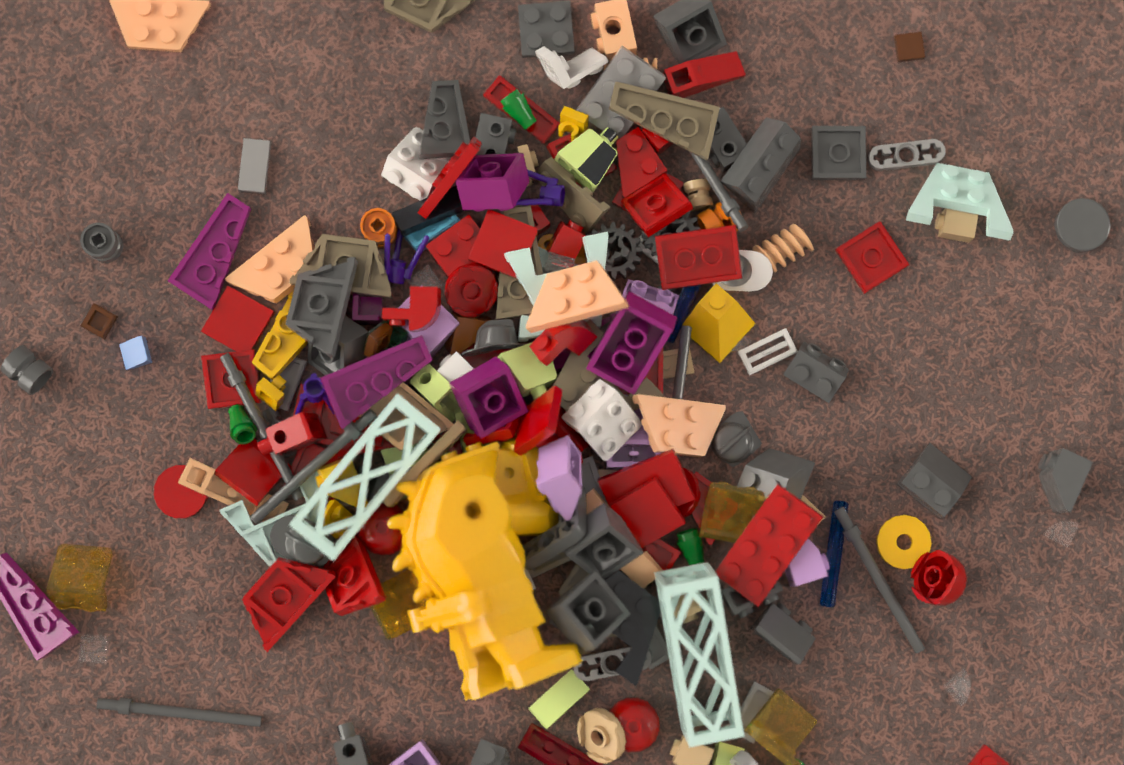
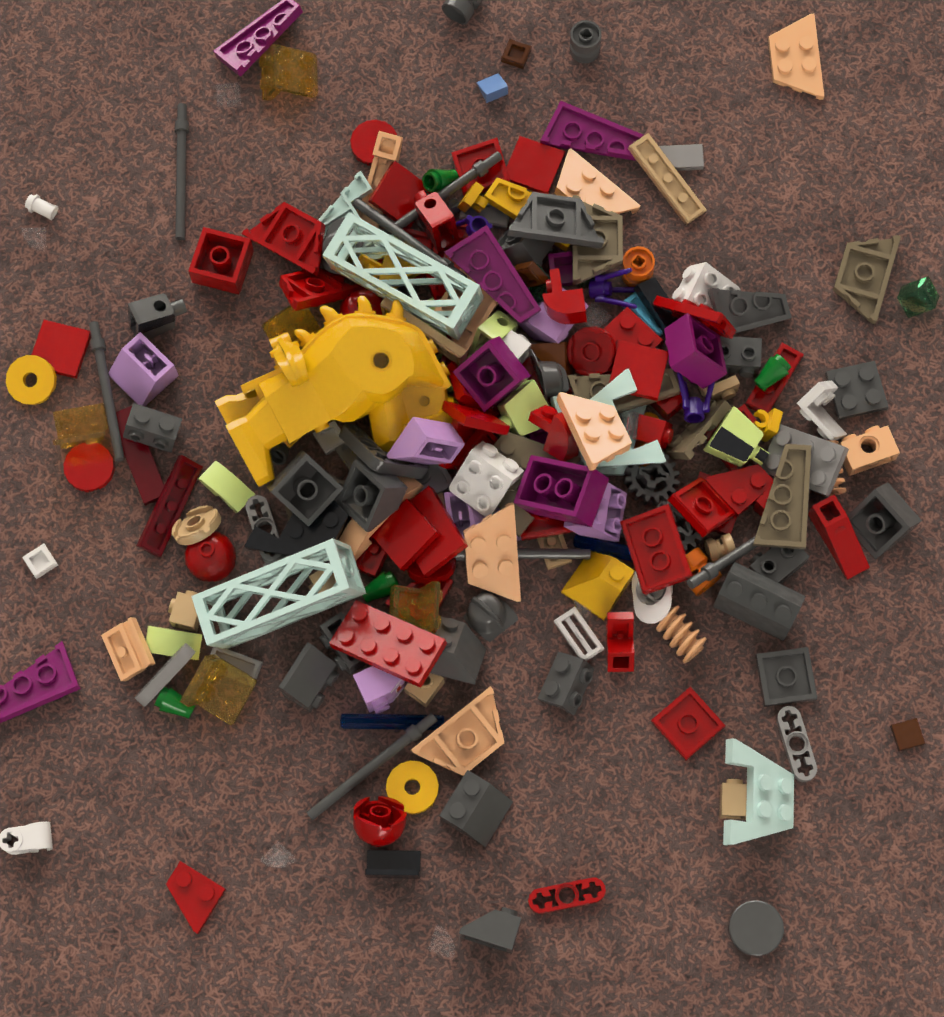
camera: 85 degrees right, 10 degrees down
(279, 181) = (667, 179): none -> tan tile
(299, 677) = (221, 260): none -> red brick
(785, 311) = (620, 641): none -> red brick
(861, 481) = (465, 737): none -> light nougat wing
(982, 570) = (393, 864): none -> black panel
(1038, 395) = (571, 885): none -> red beam

